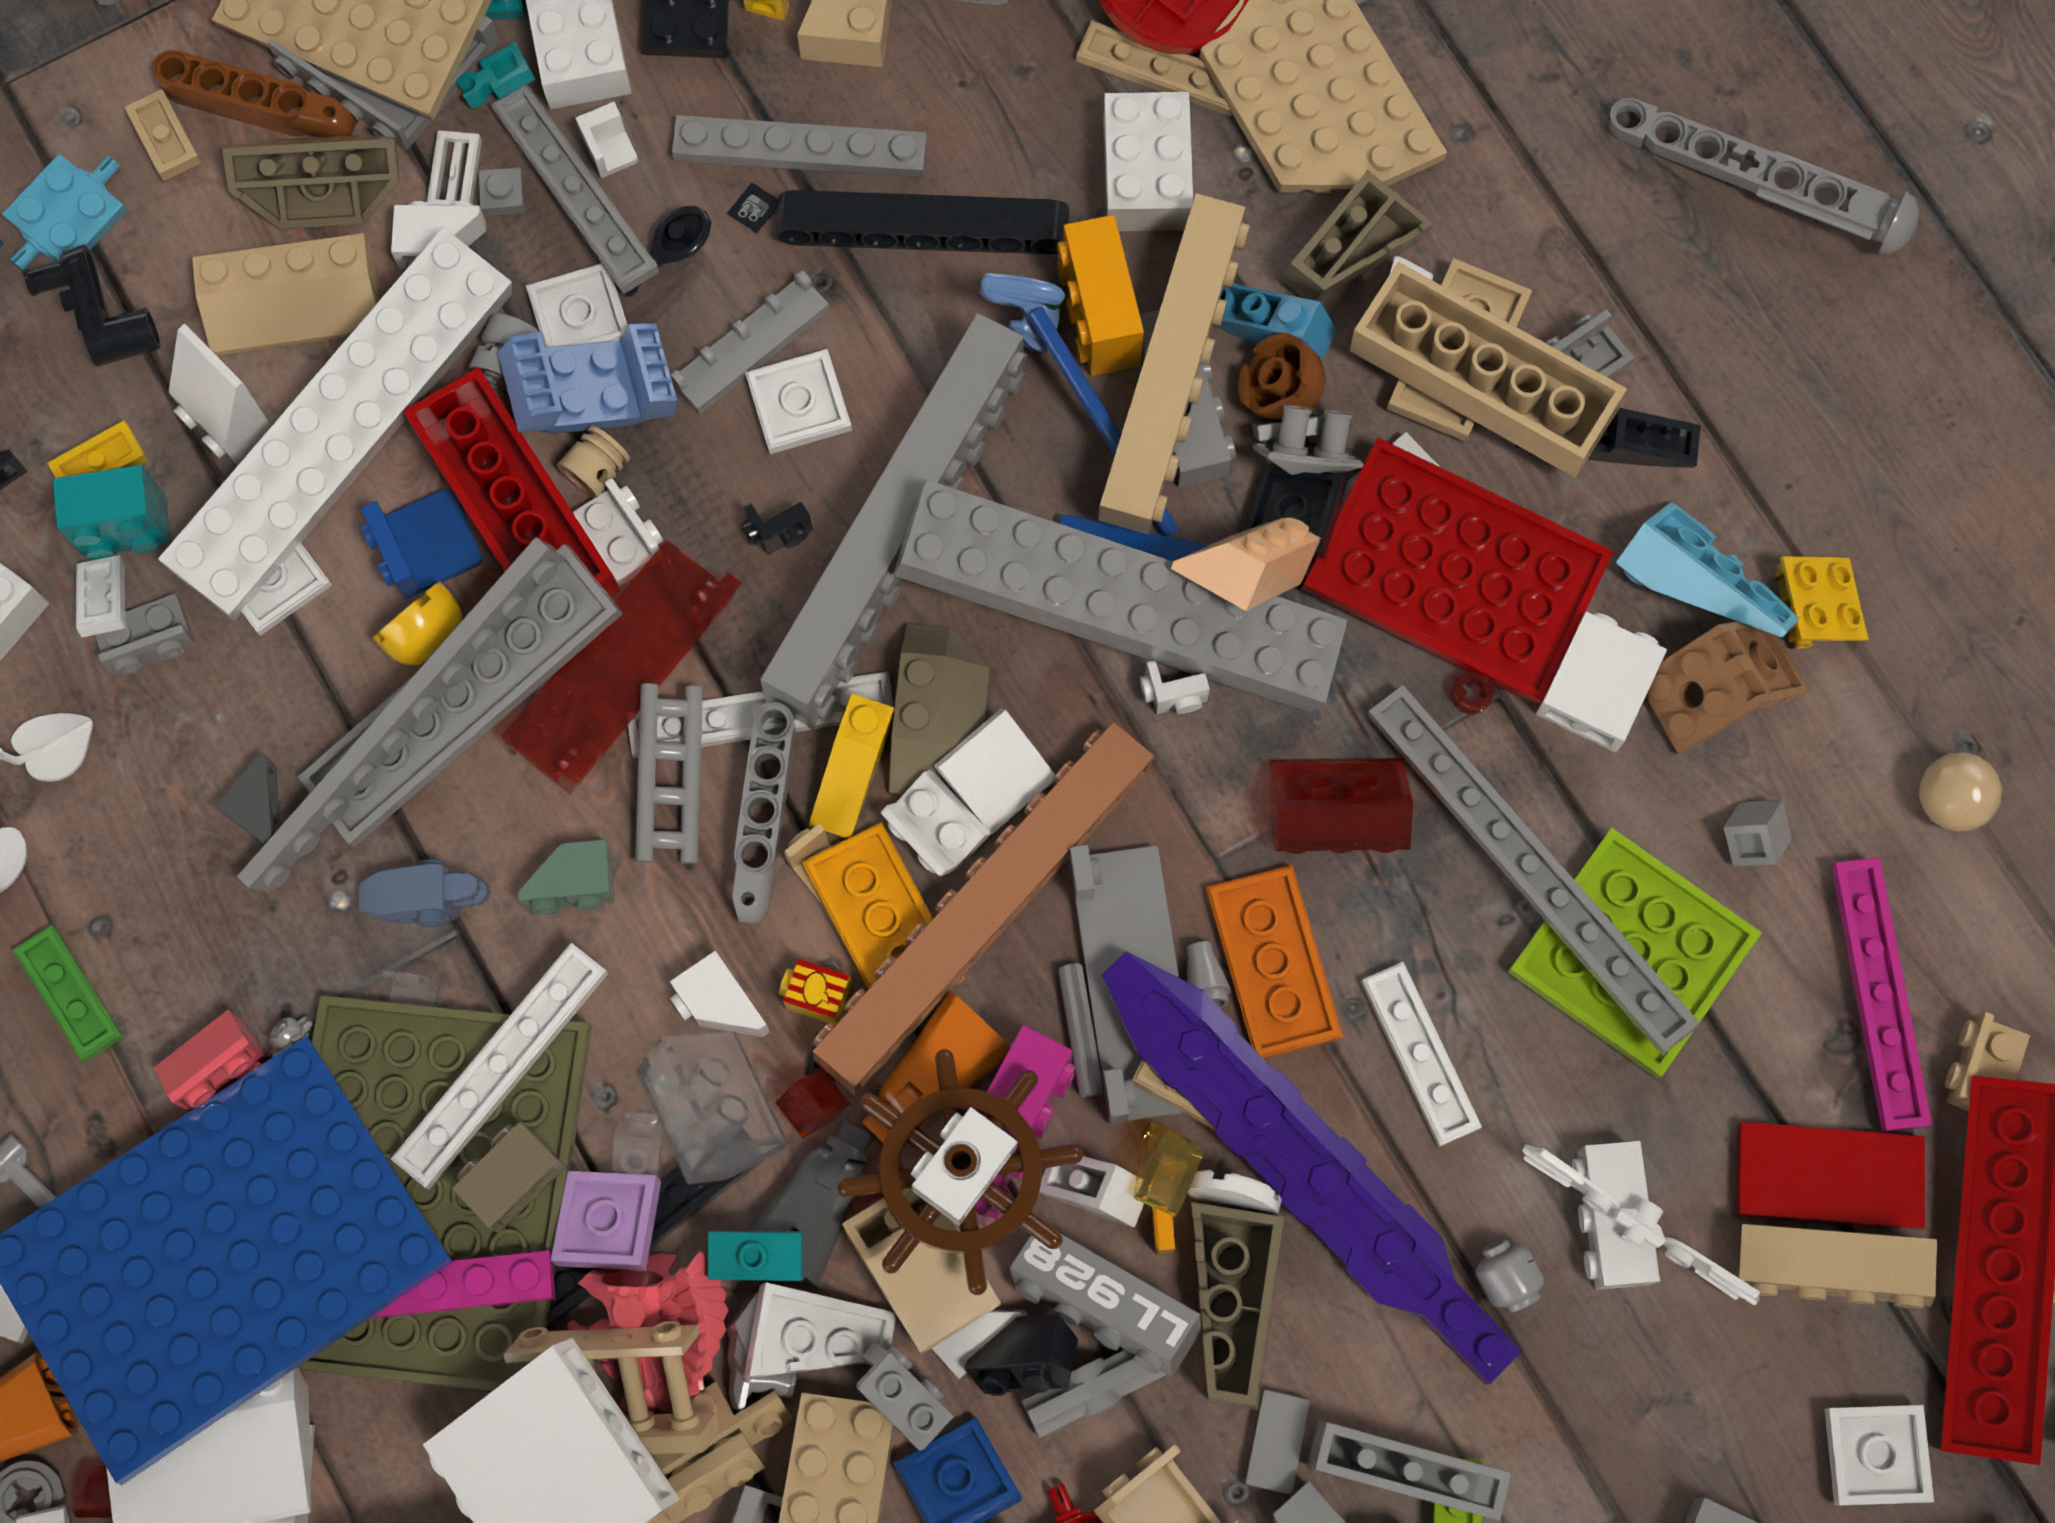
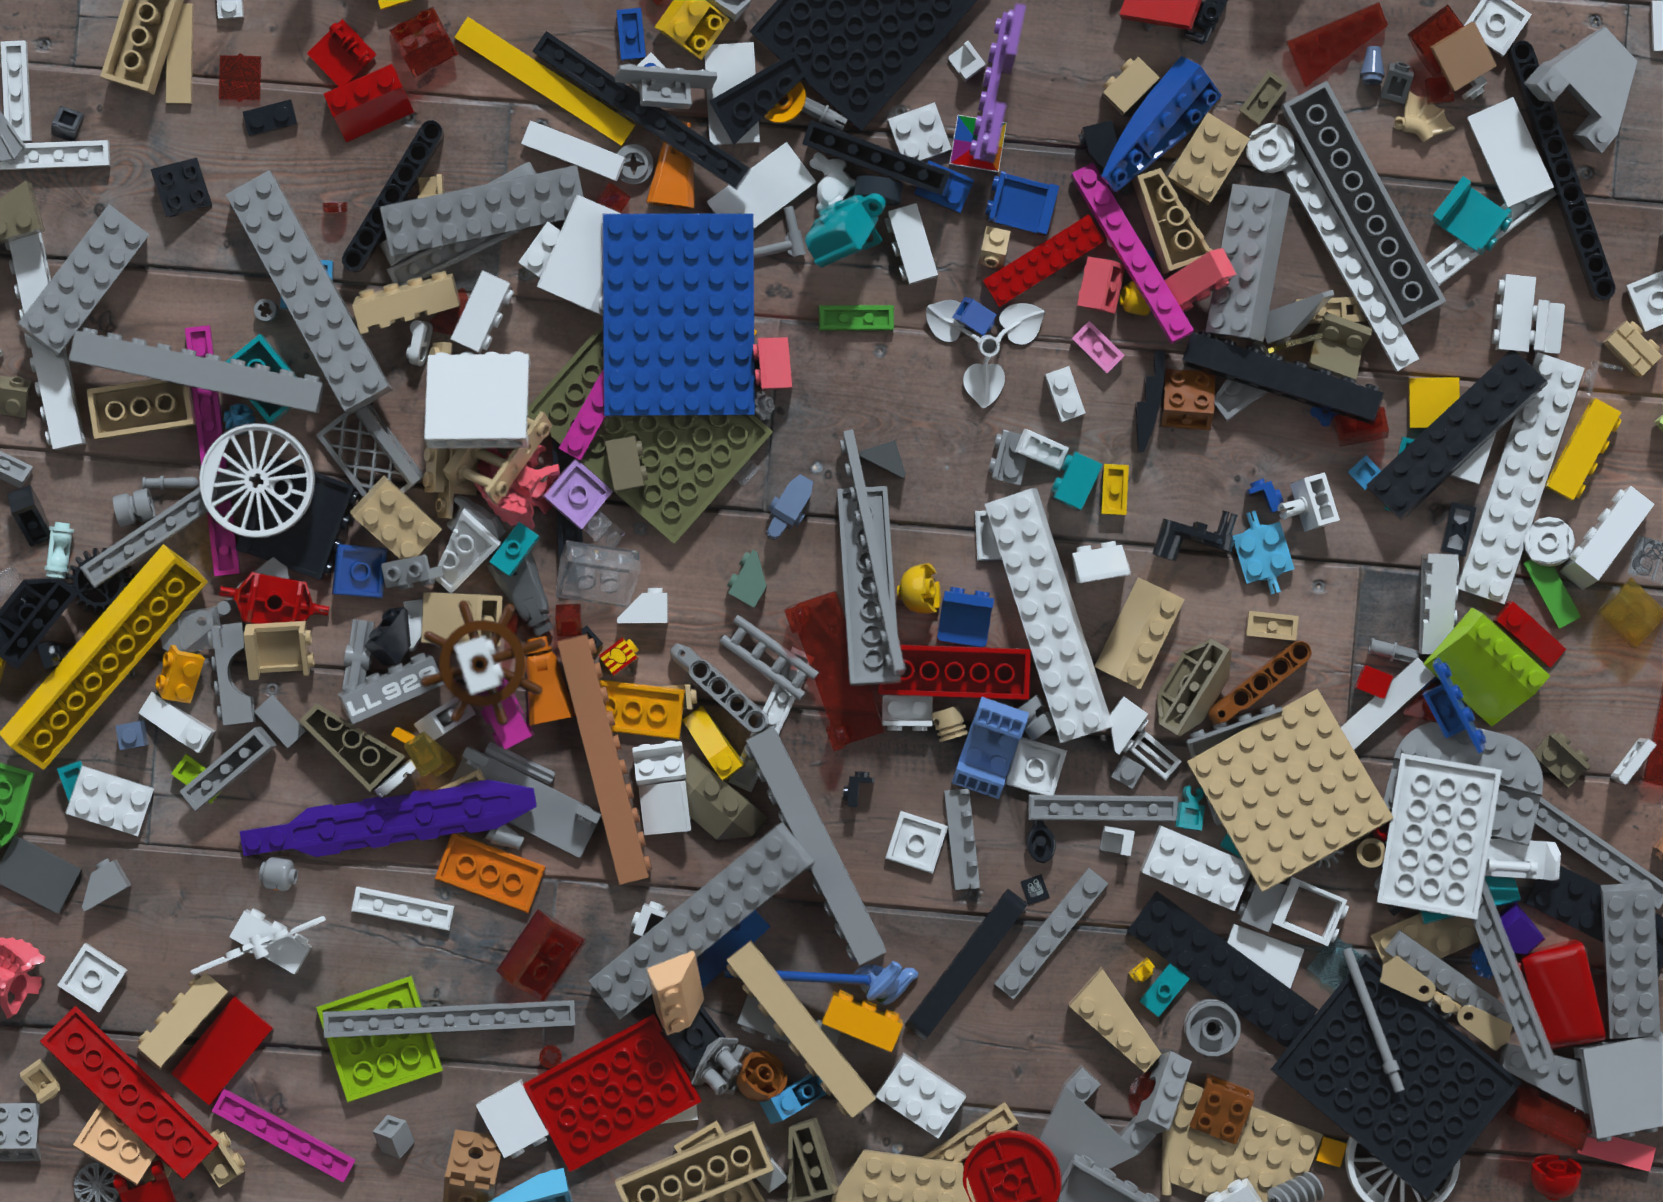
camera: 120 degrees right, 15 degrees up
(499, 1066) = (681, 492): white tile -> none

